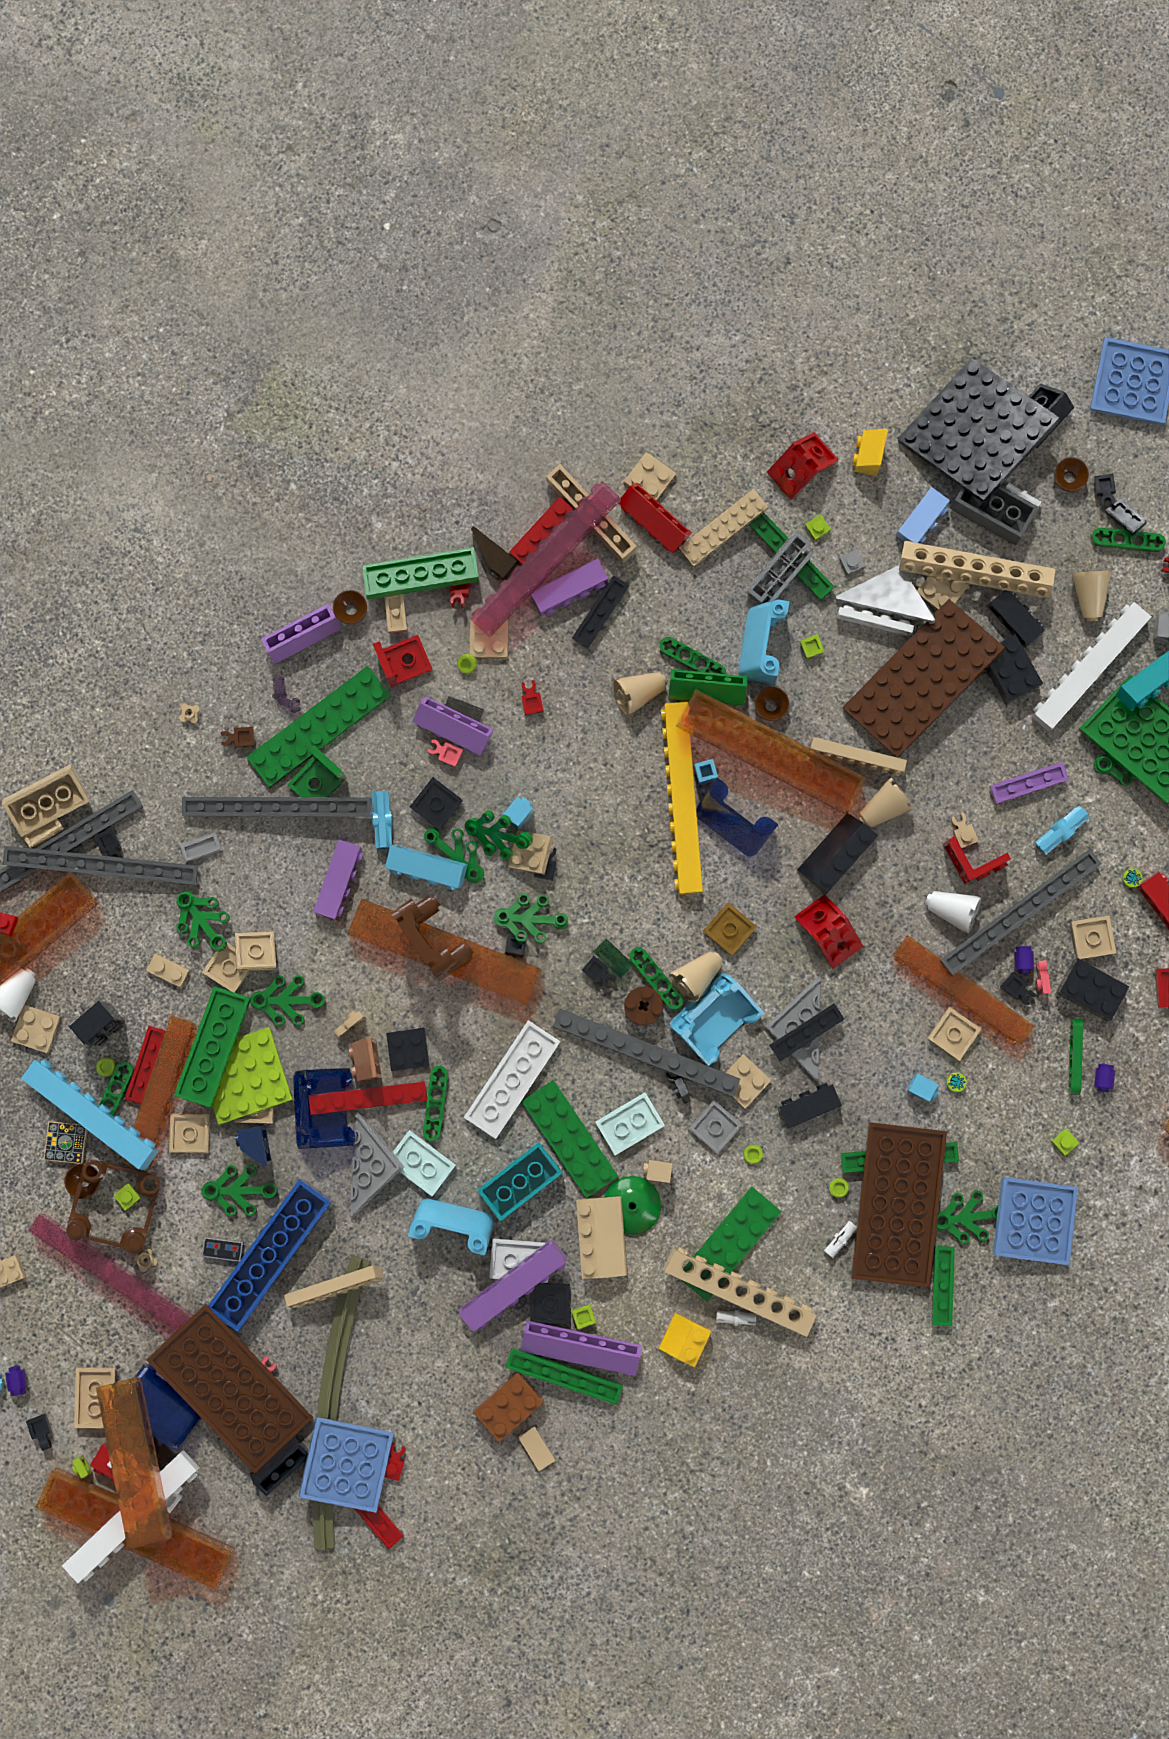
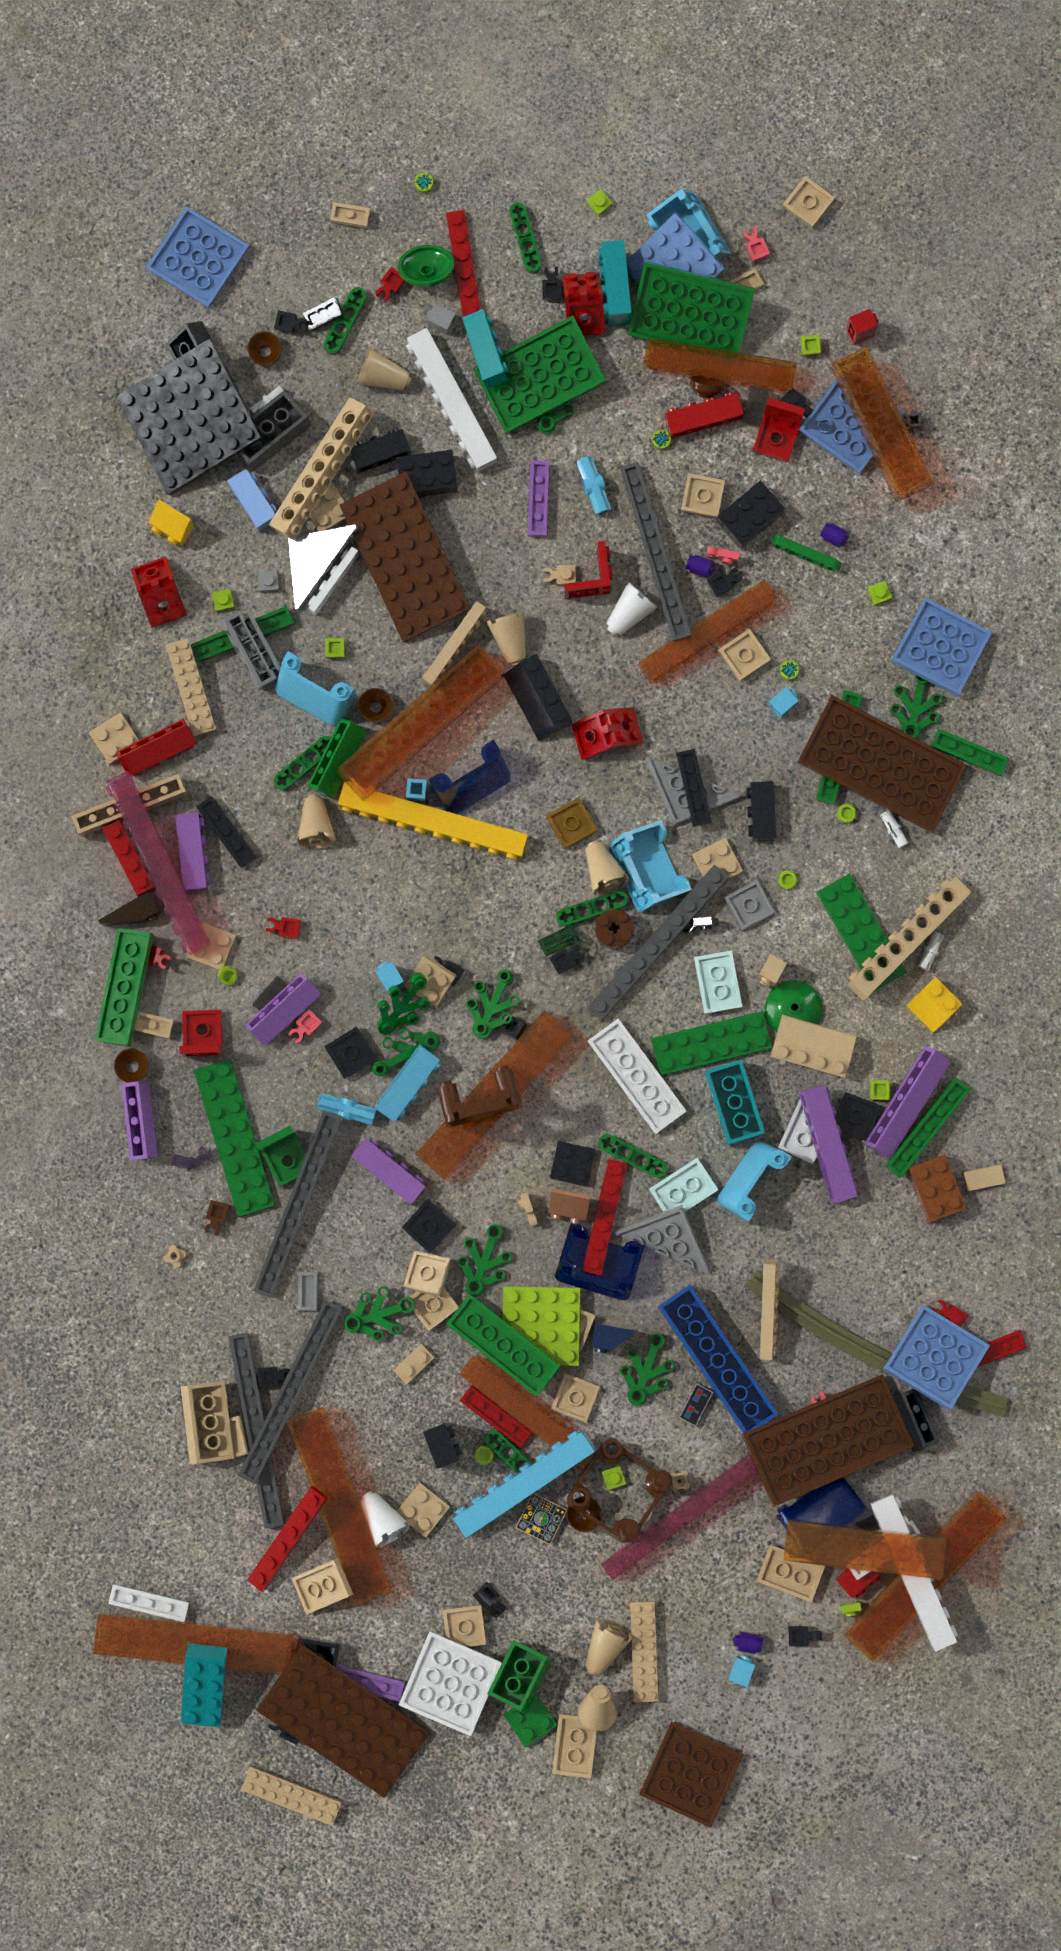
camera: 70 degrees left, 0 degrees up
(300, 936) = (428, 1226): none -> black plate

